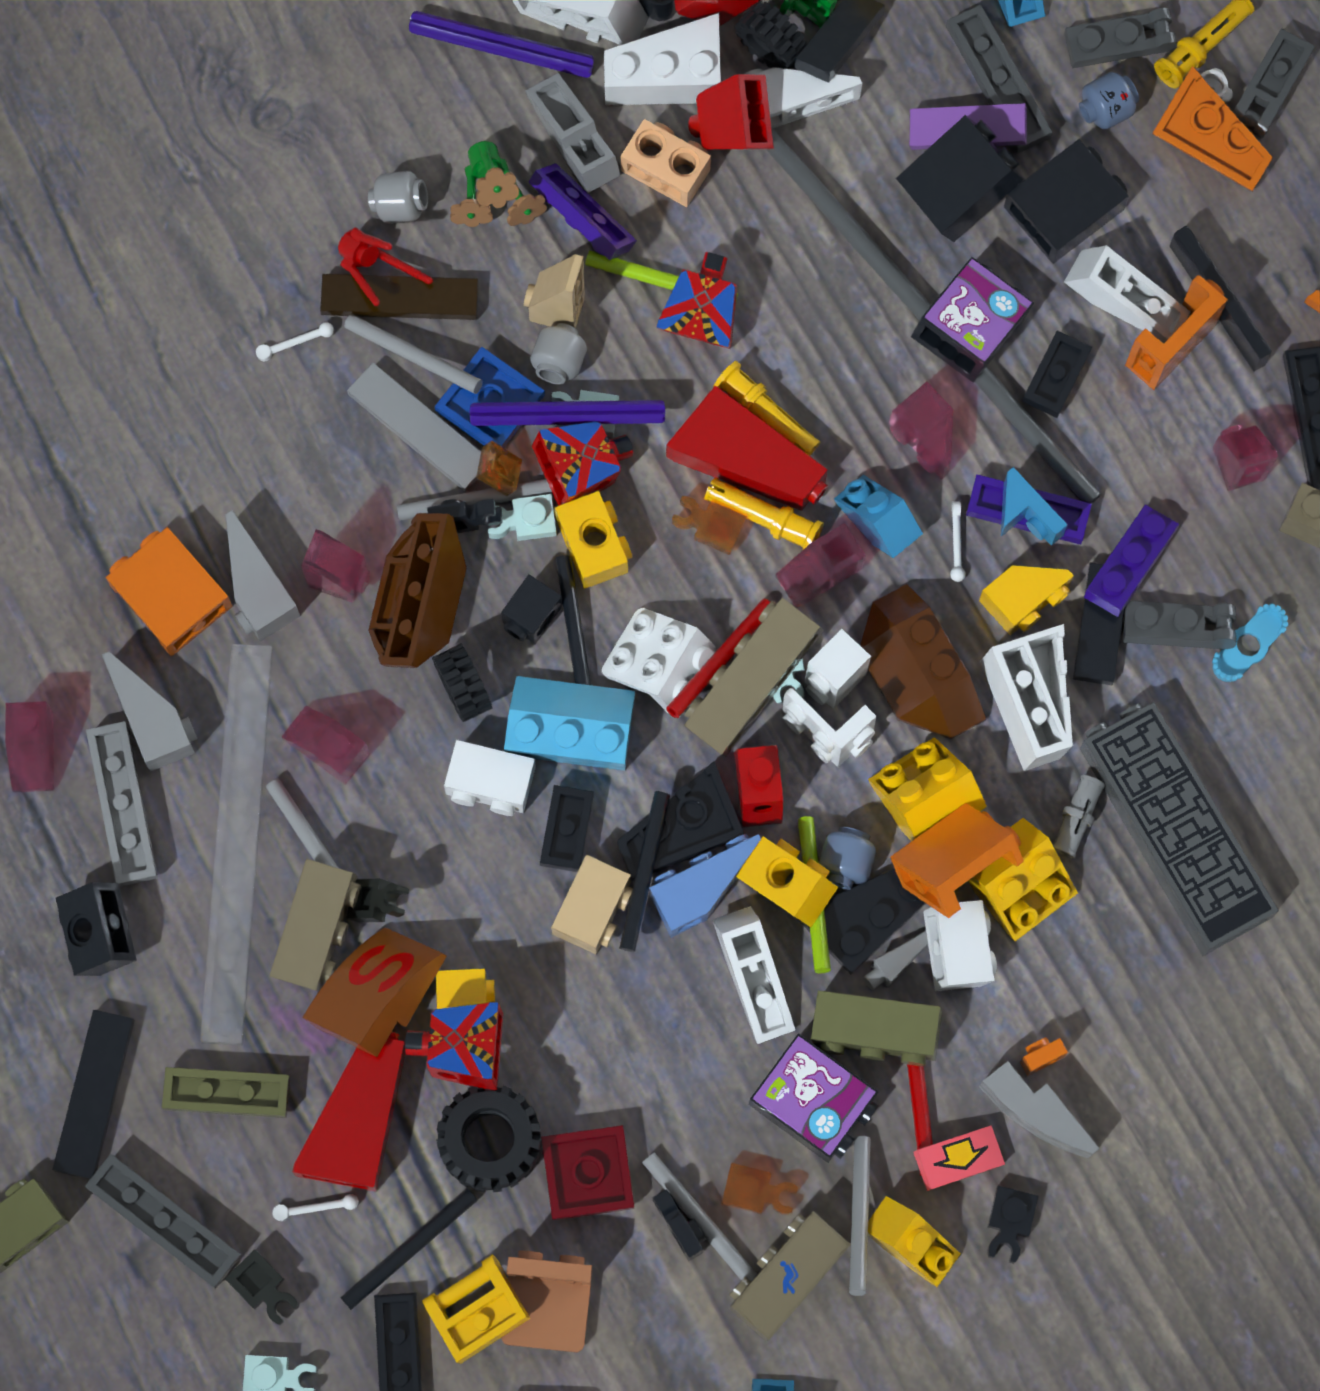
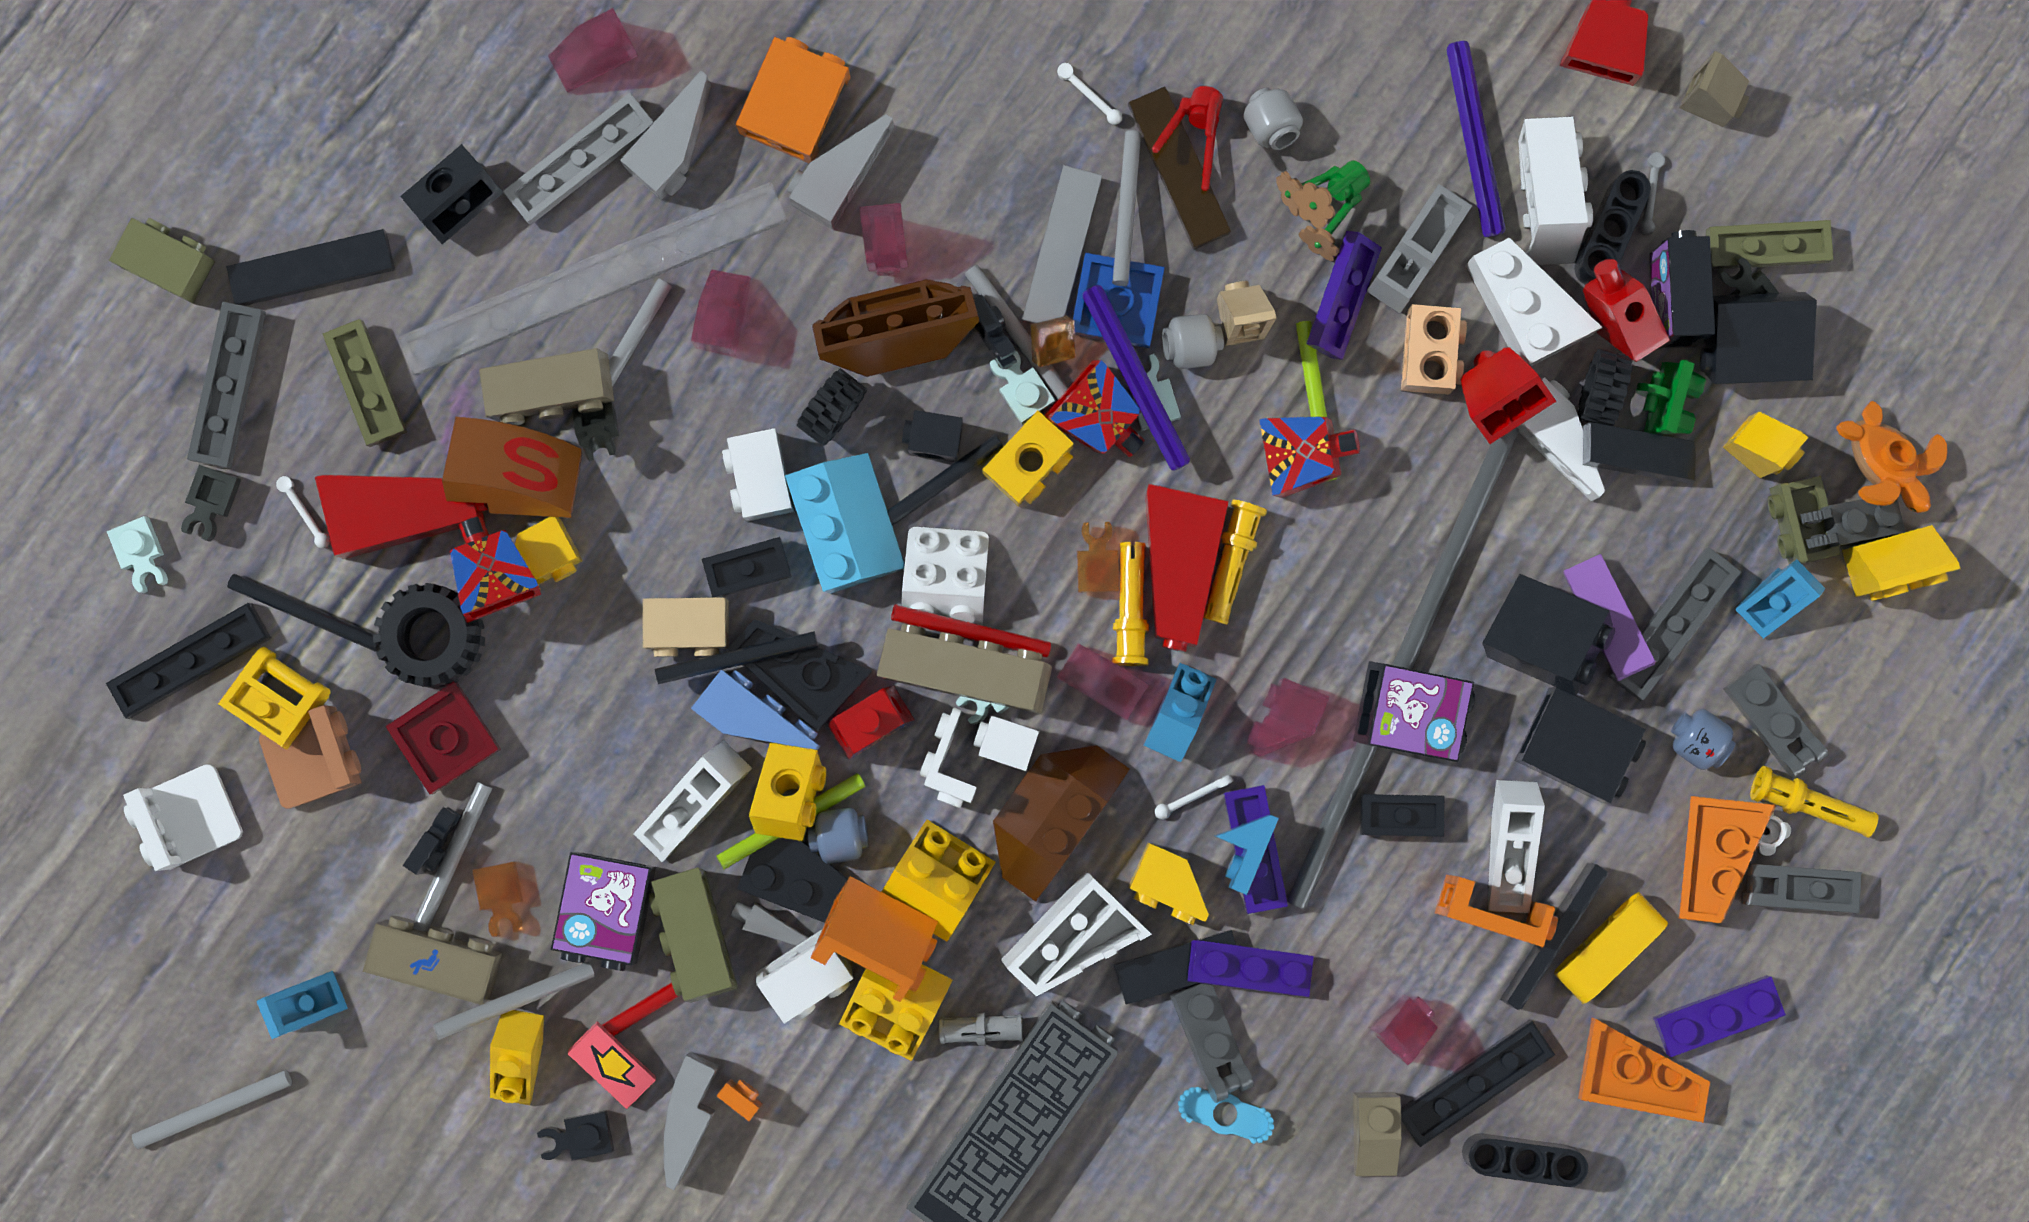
camera: 65 degrees right, 10 degrees up
(1252, 257) = (1611, 948): none -> yellow beam

